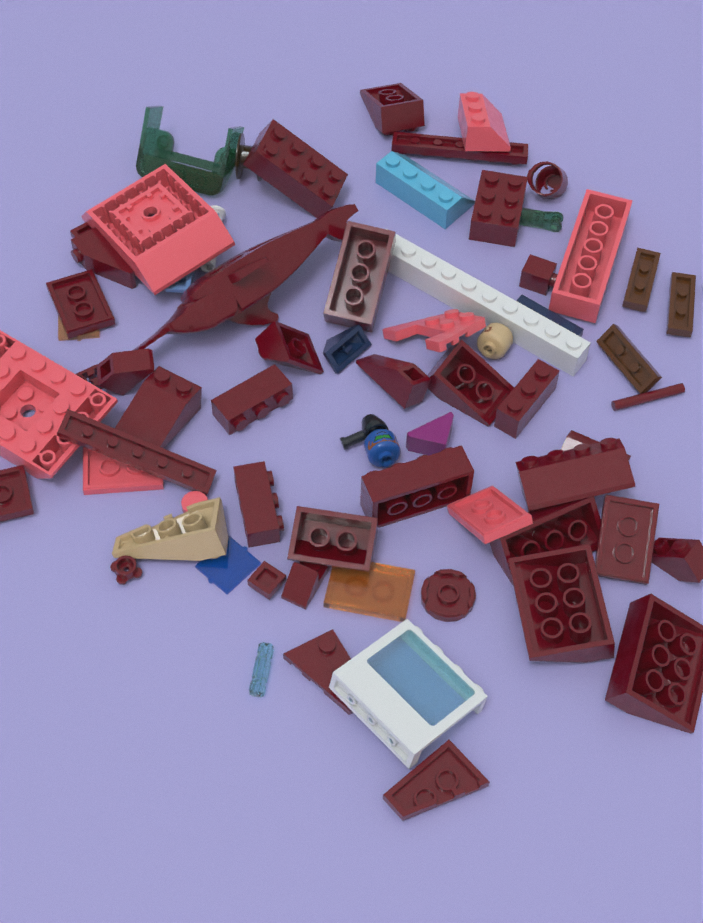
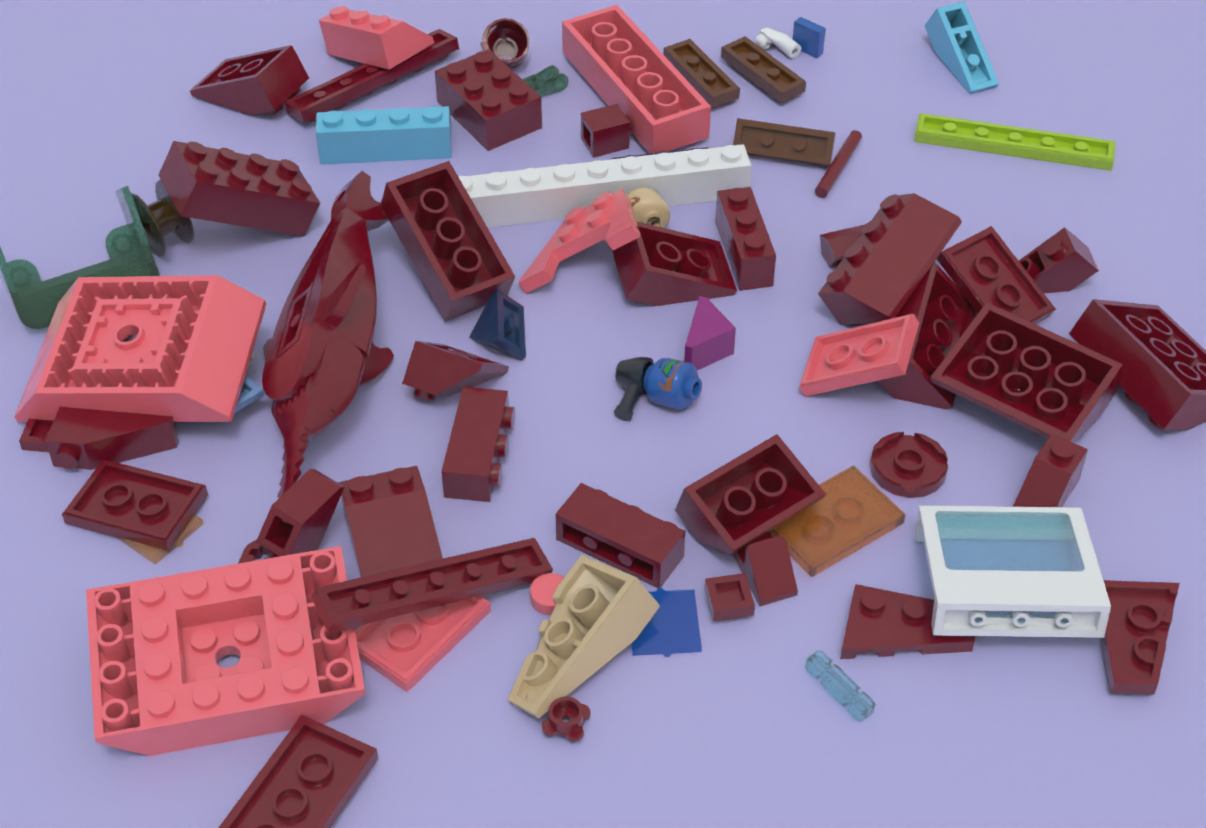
camera: 45 degrees left, 10 degrees down
(398, 378) = (605, 308): dark red slope -> none
(416, 486) = (761, 382): dark red brick -> none
(501, 669) = (1052, 474): none -> dark red slope

